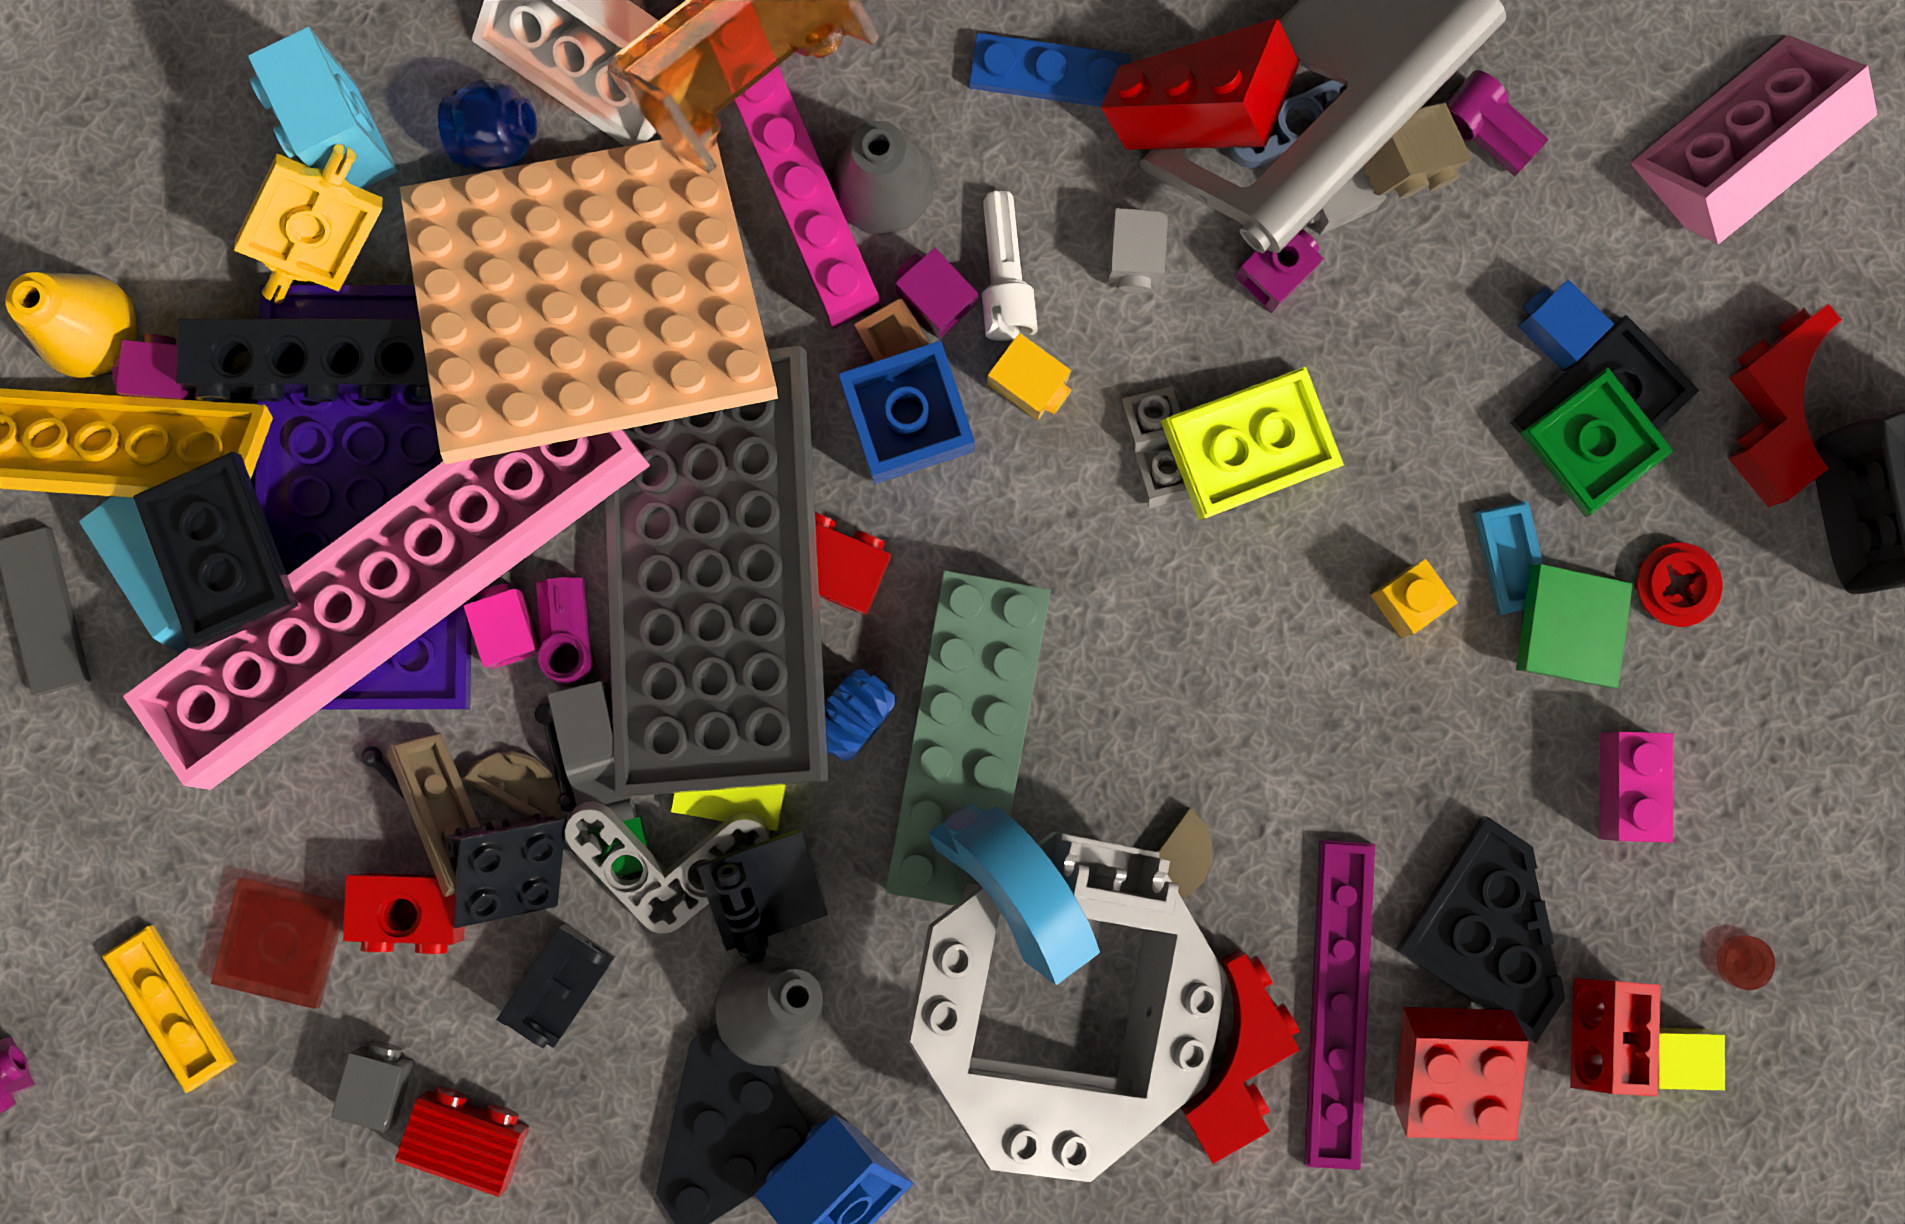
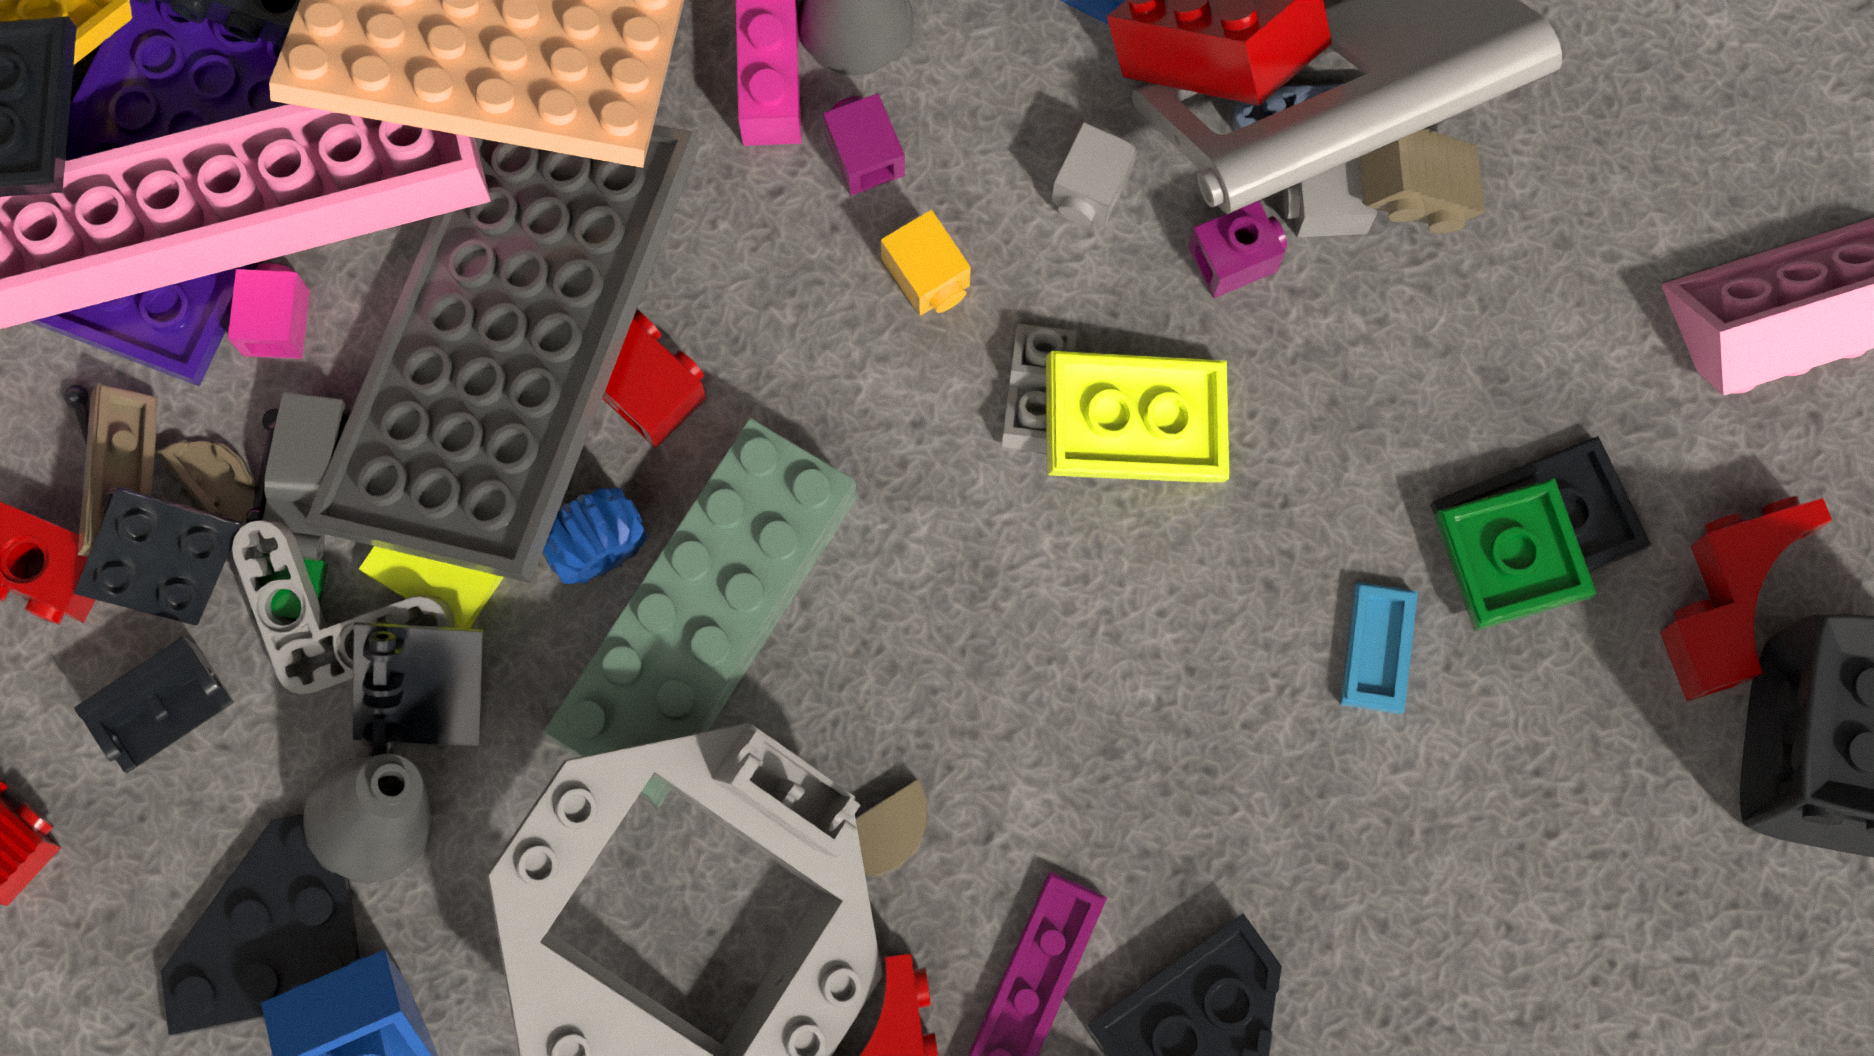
camera: 25 degrees right, 10 degrees down
(564, 625) = (331, 337): magenta piece -> none
(891, 331) = (800, 168): medium nougat plate -> none
(907, 412) = (780, 249): blue brick -> none
(1008, 299) = (937, 177): white piece -> none
(1023, 885) = (683, 765): dark azure arch -> none
(1413, 598) = (1249, 644): yellow brick -> none
(1485, 116) = (1518, 177): magenta piece -> none
(1564, 323) = (1524, 417): blue brick -> none
(1574, 626) = (1418, 743): tile -> none
(1636, 787) = (1423, 943): dark pink brick -> none
(1702, 591) = (1568, 720): red gear -> none

